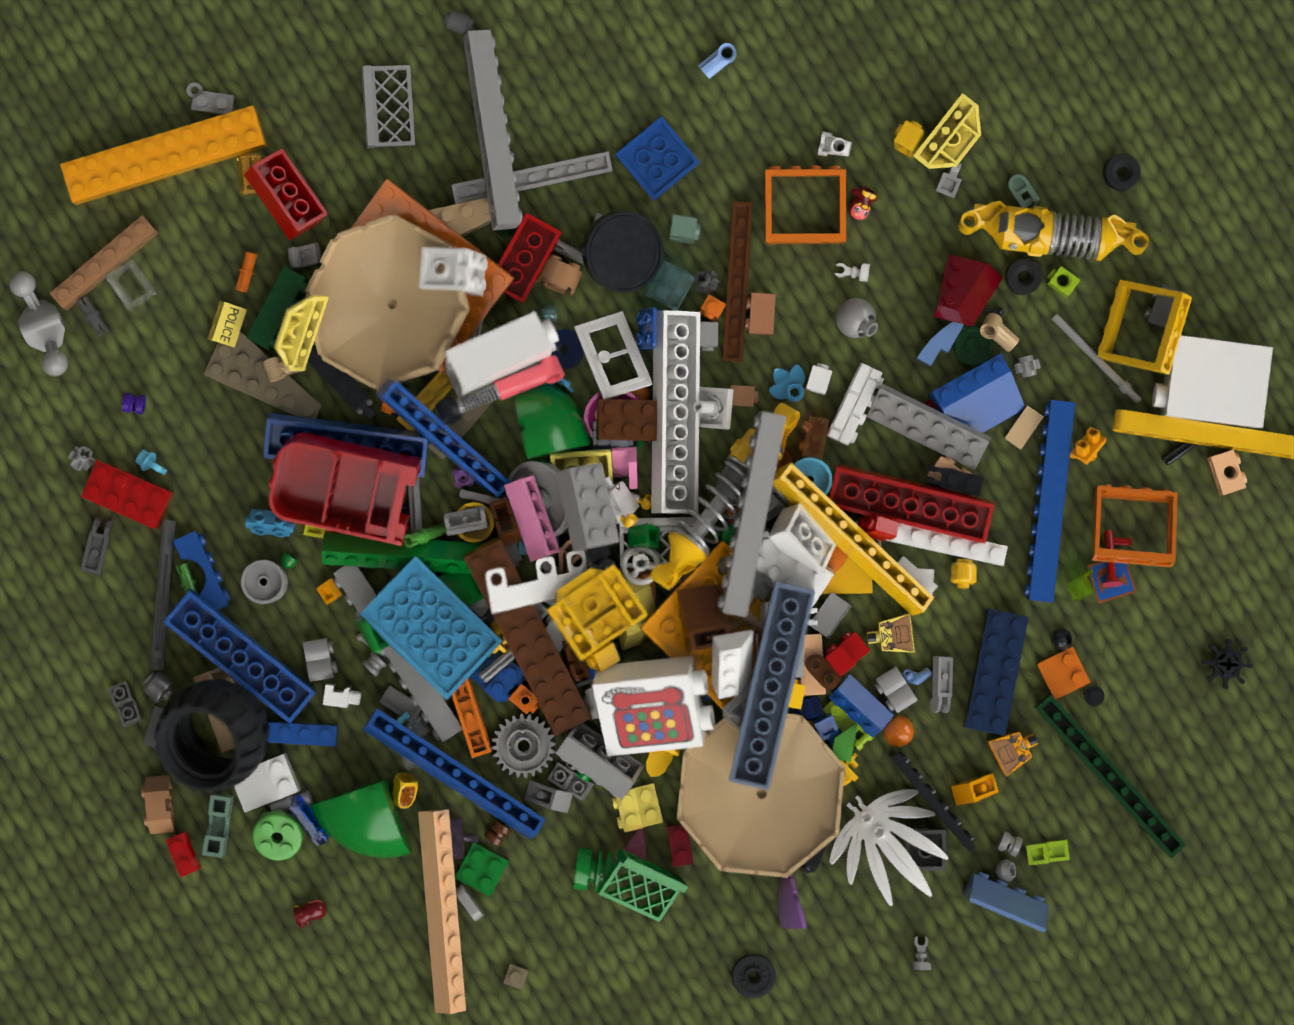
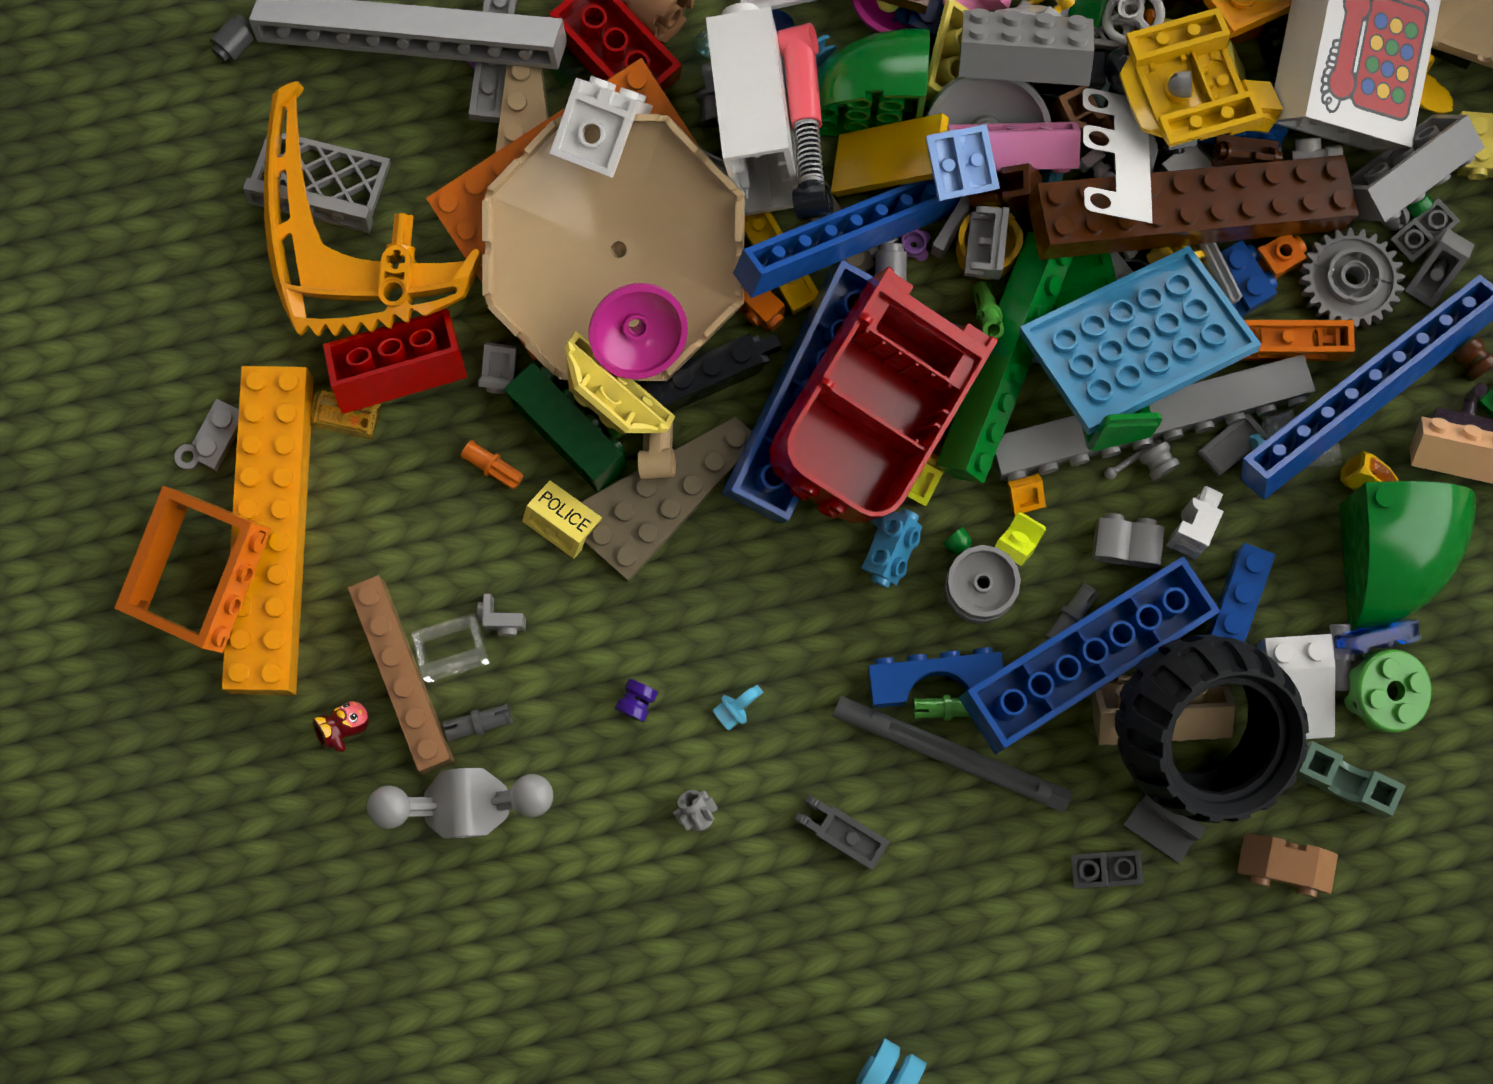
camera: 75 degrees left, 10 degrees down
(66, 238) = (343, 722): none -> dark red animal
(127, 494) = (776, 755): red brick -> none
(130, 94) = (153, 556): none -> orange window
(154, 312) = (504, 623): none -> light grey bracket
(158, 687) = (1097, 805): flat silver head -> none
(183, 854) = (1377, 852): red brick -> none
(268, 640) = (1074, 610): none -> dark grey pin
(299, 595) = (1021, 538): none -> neon yellow bracket
(325, 136) = (333, 274): none -> light orange piece
(335, 334) = (640, 349): none -> dark pink dish
(442, 468) = (891, 256): none -> light grey brick
(503, 491) = (962, 162): none -> light blue slope
(504, 446) = (885, 155): none -> yellow tile
(589, 606) = (1181, 84): none -> light grey hinge

